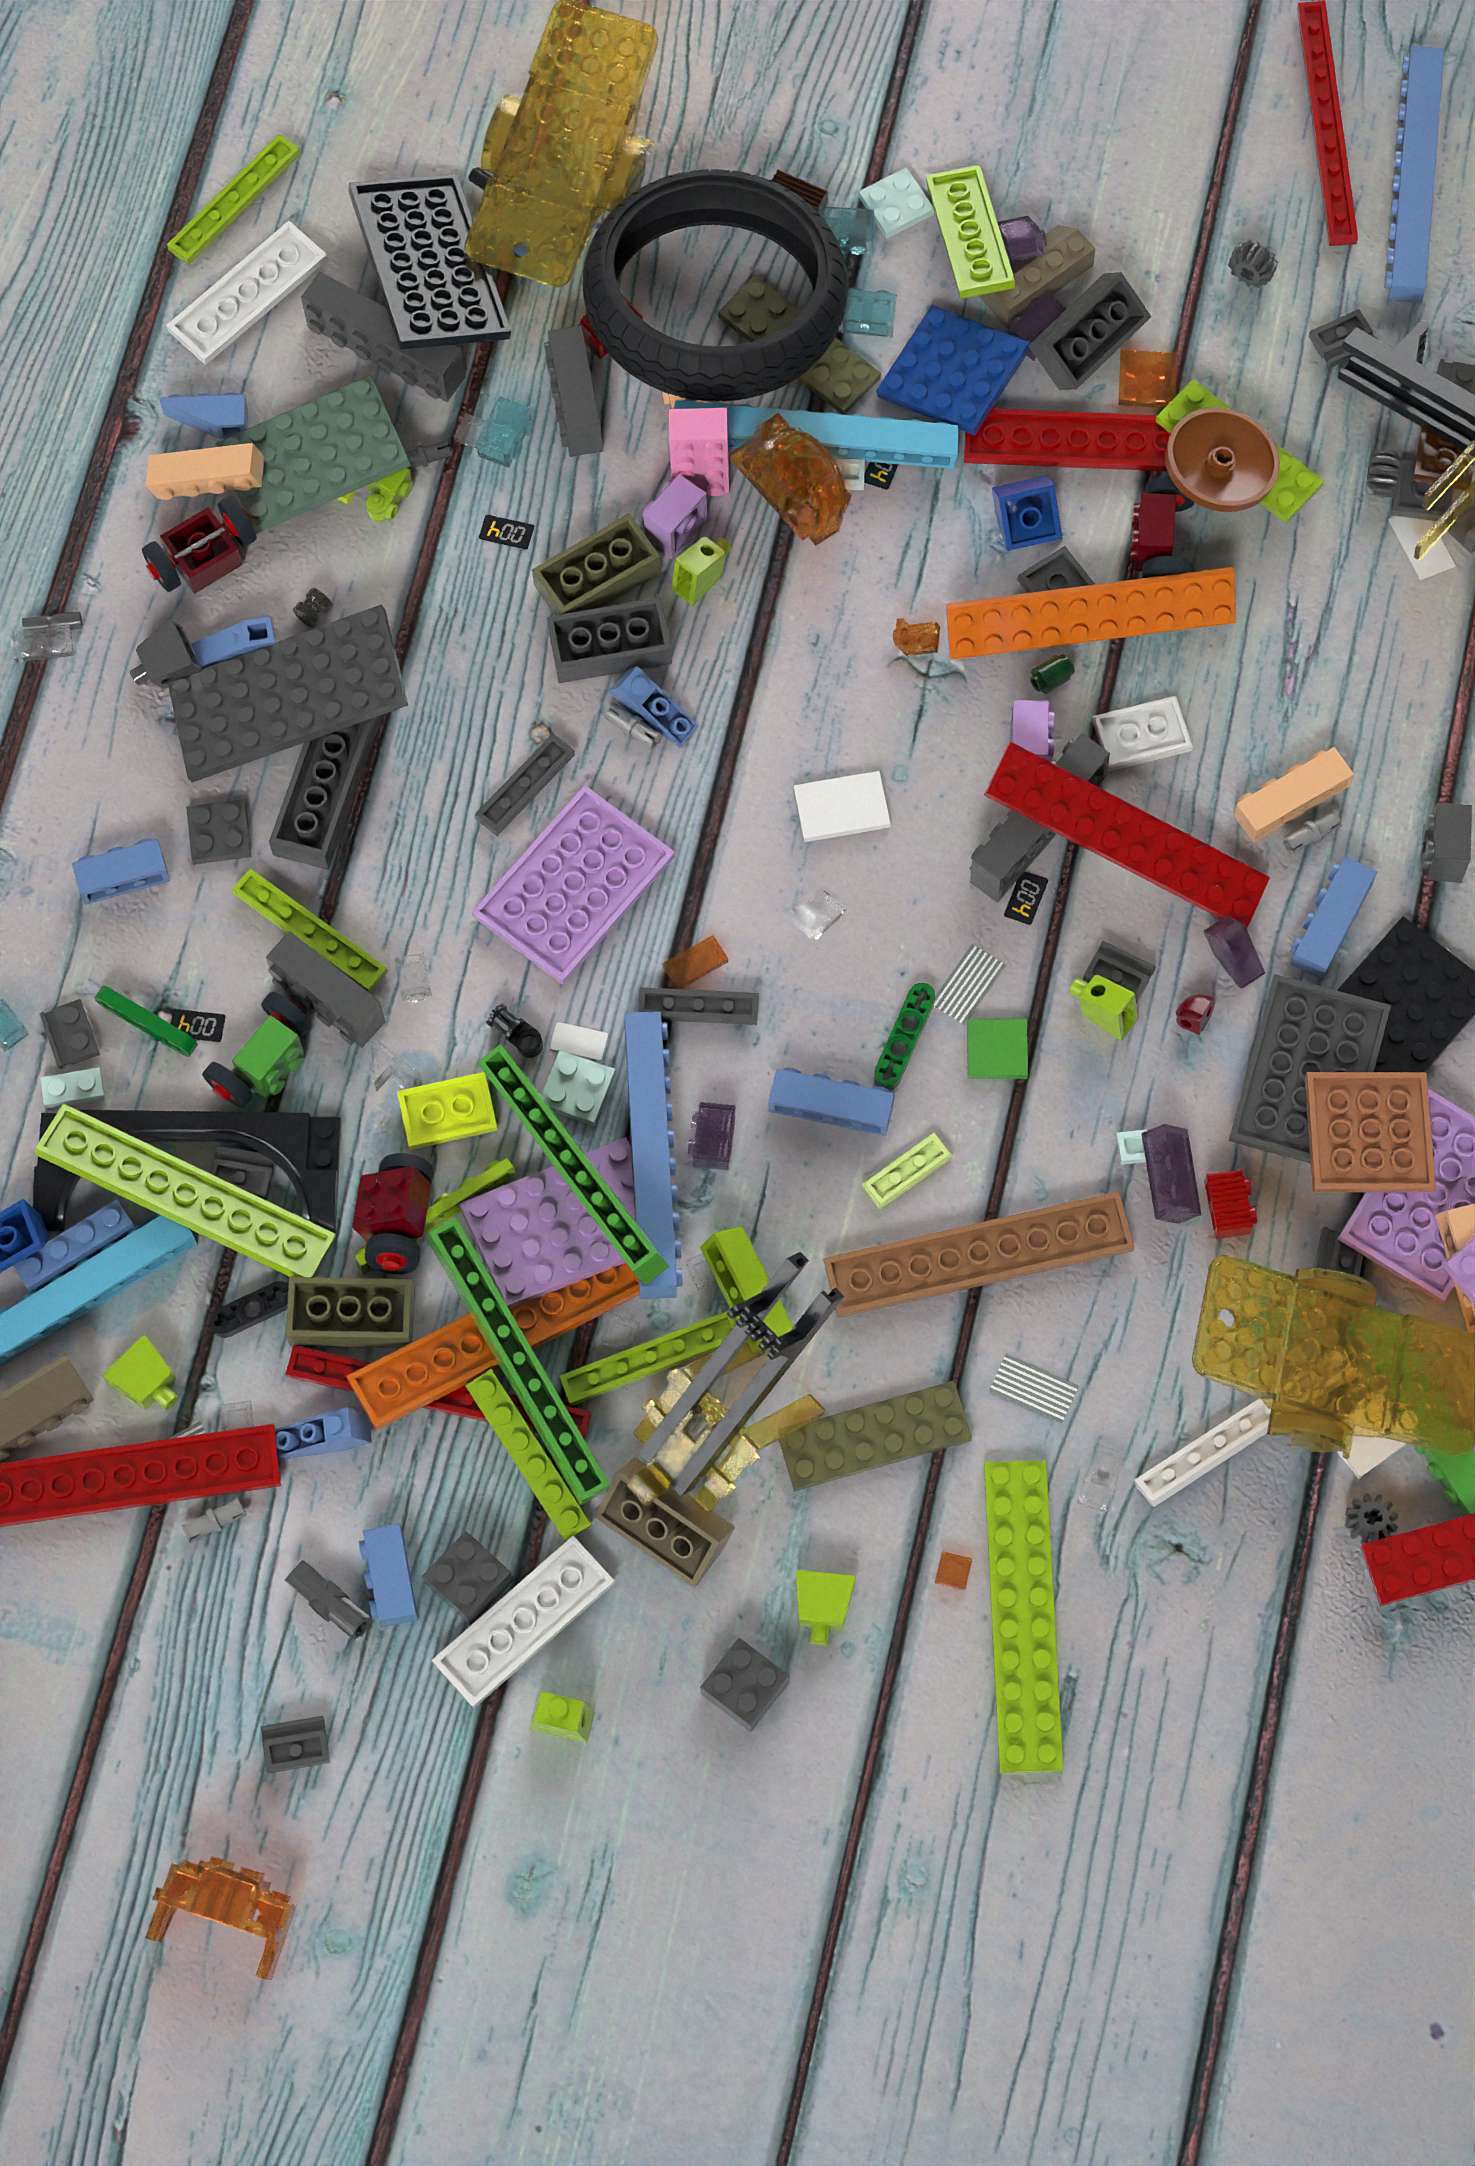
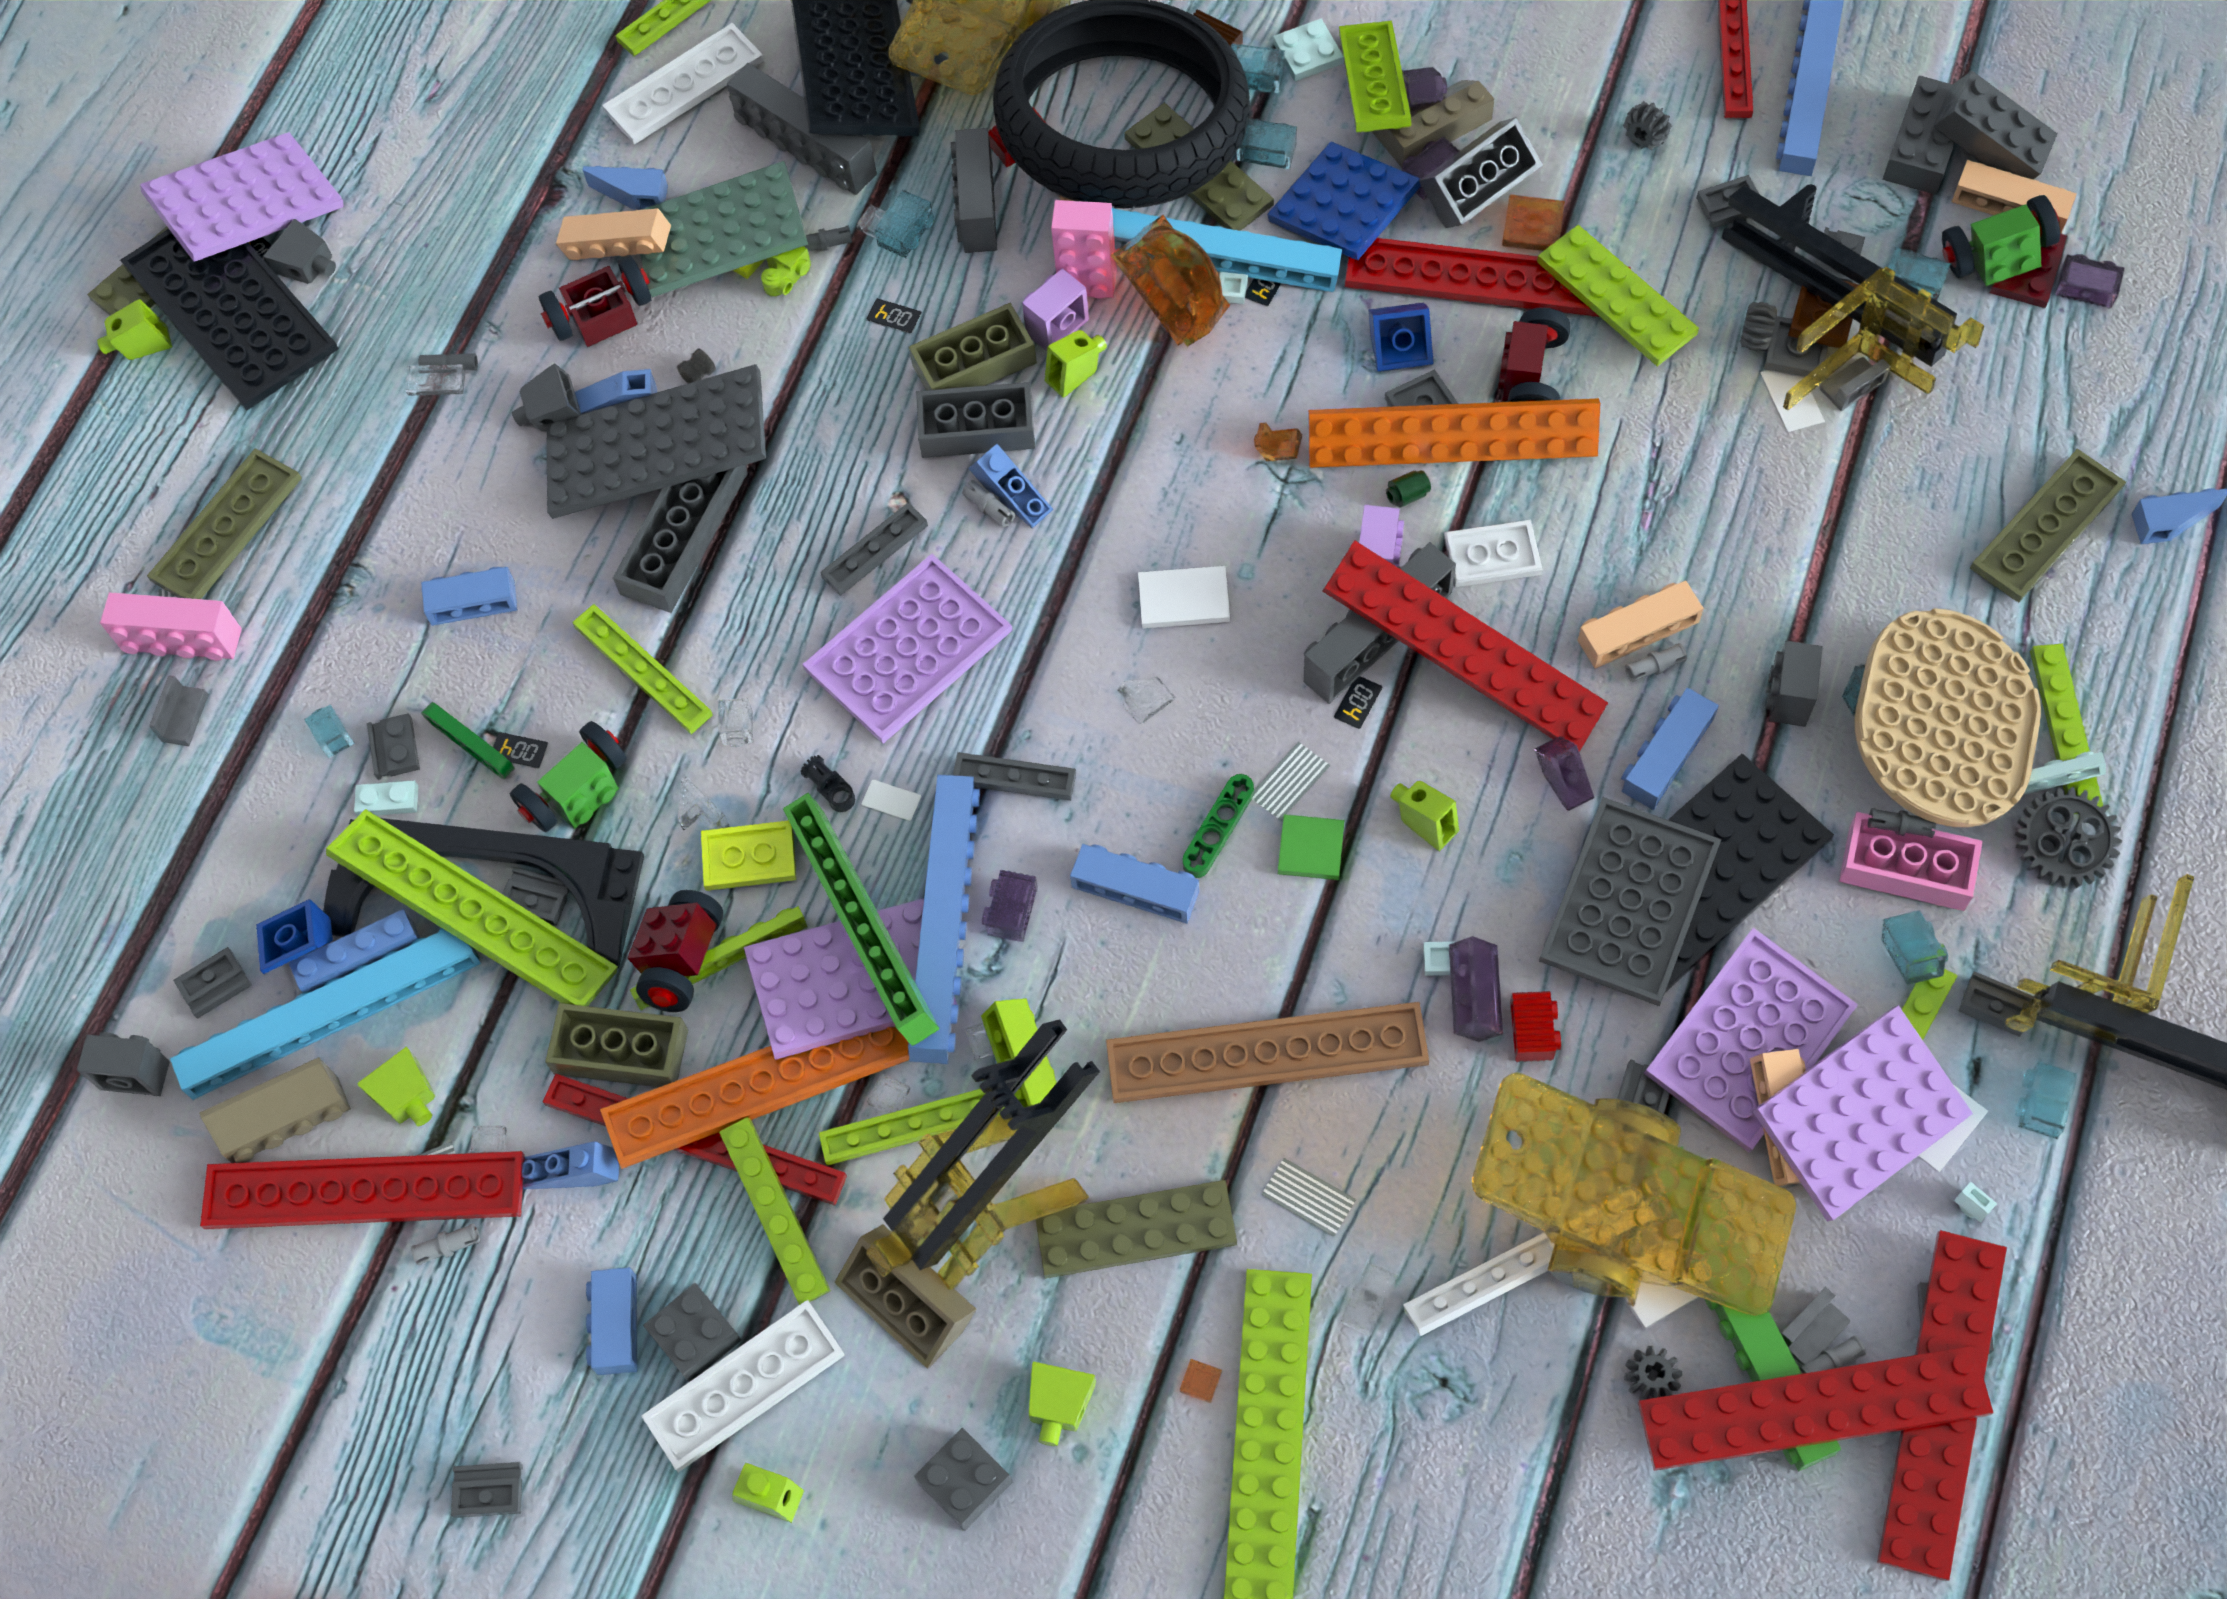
camera: 10 degrees right, 5 degrees down
(218, 831) = (571, 568): dark grey plate -> none
(264, 1314) = (502, 1048): black beam -> none
(325, 990) = (644, 725): dark grey brick -> none
(328, 1600) = (546, 1340): dark grey piece -> none
(518, 1361) = (774, 1113): bright green brick -> none
(578, 1087) = (882, 845): light aqua plate -> none
(695, 962) = (1017, 734): clear orange tile -> none
(907, 1171) = (1204, 960): yellowish green tile -> none
(1120, 968) = (1447, 779): dark grey plate -> none
(1195, 1012) = (1518, 829): dark red piece -> none
(1222, 459) = (1598, 296): dark orange dish -> none
(1369, 1132) = (1687, 965): nougat plate -> none

